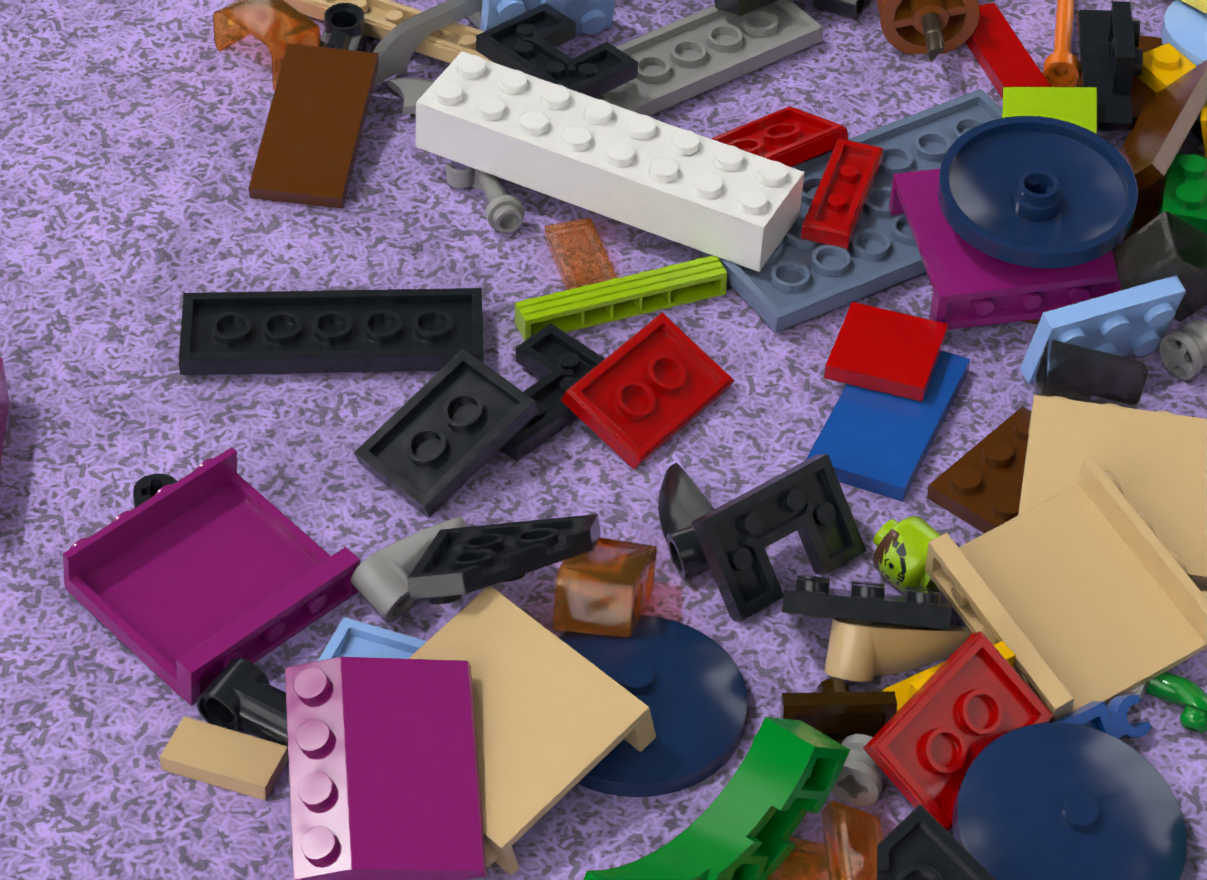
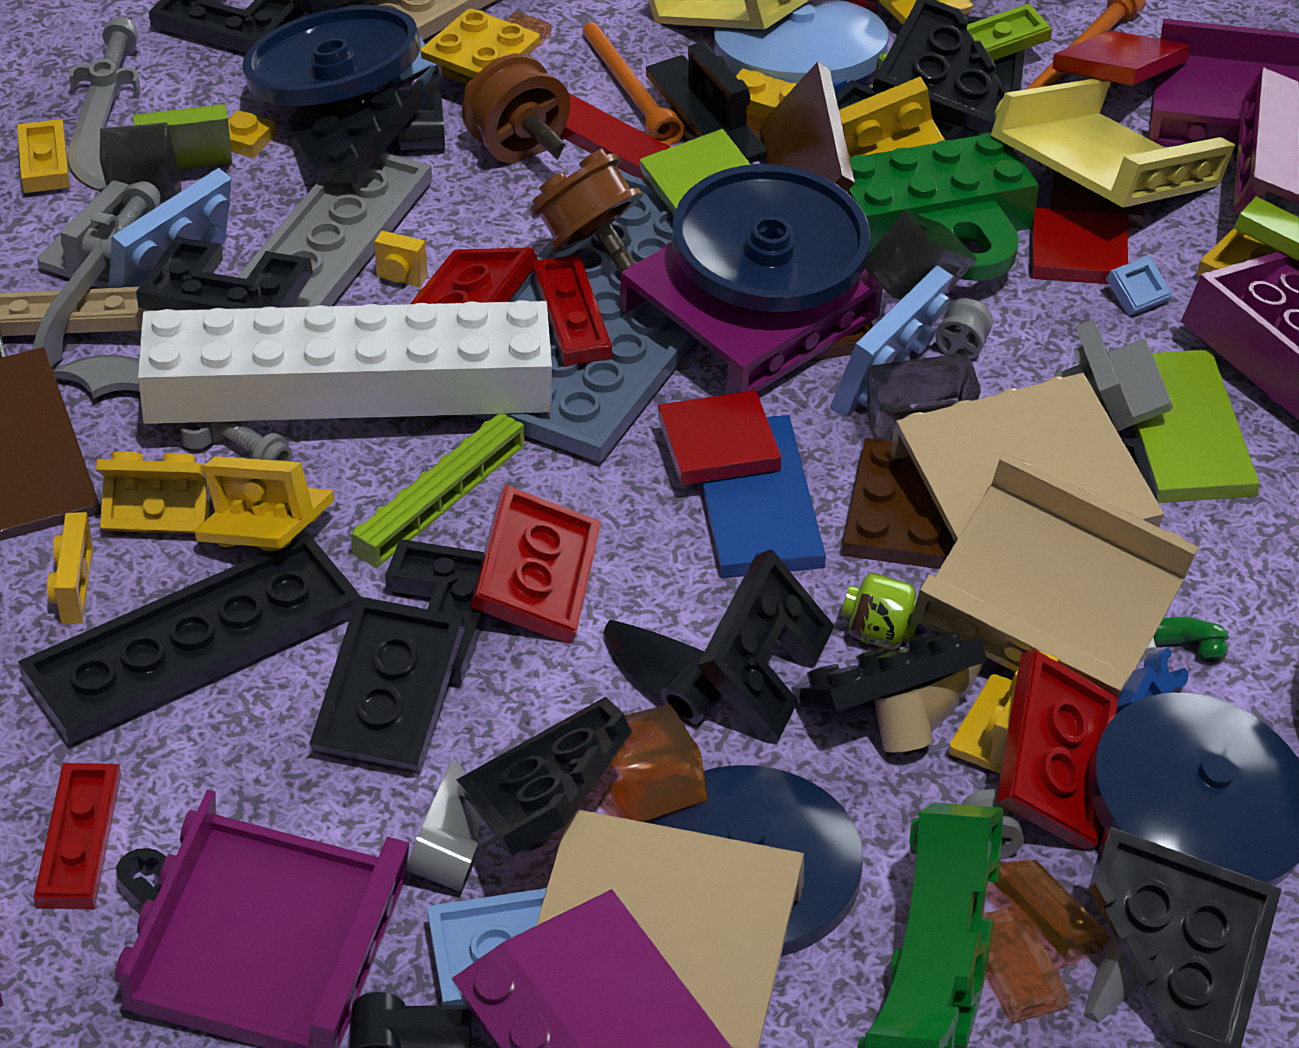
camera: 30 degrees left, 0 degrees up
(134, 446) = (77, 836): none -> red tile
(280, 239) = (73, 560): none -> yellow plate
(385, 207) = (153, 494): none -> yellow bracket
(456, 247) = (259, 502): none -> yellow bracket
(578, 253) = (367, 465): clear orange tile -> none
(735, 95) = (400, 258): none -> yellow plate
(838, 711) = (940, 781): dark brown tile -> none
(907, 105) = (587, 206): none -> dark orange wheel

